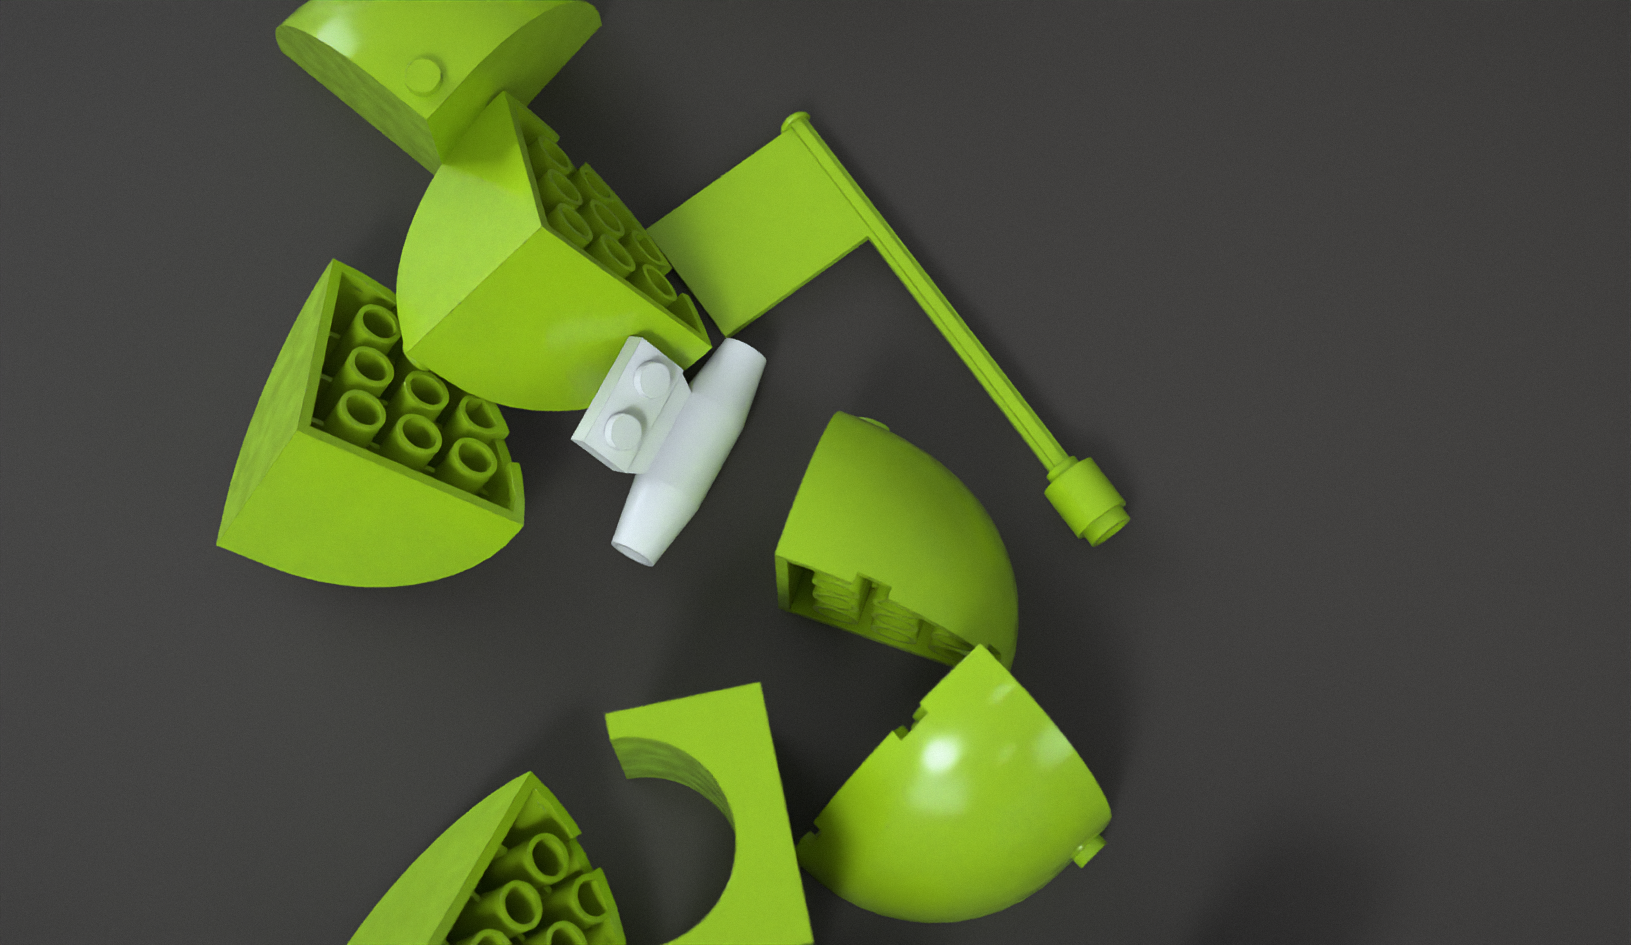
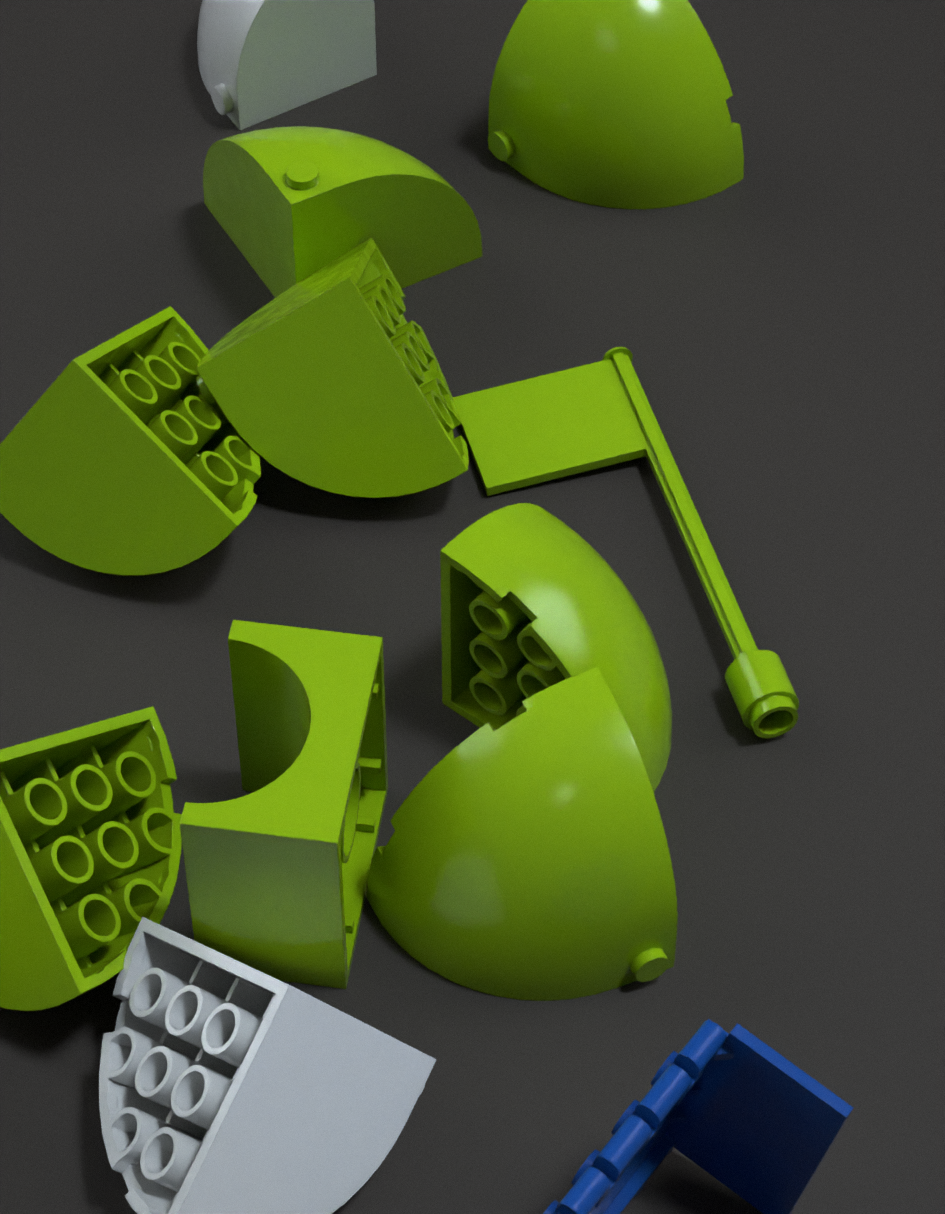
camera: 20 degrees right, 25 degrees down
(667, 435) = (389, 509): white plate -> none

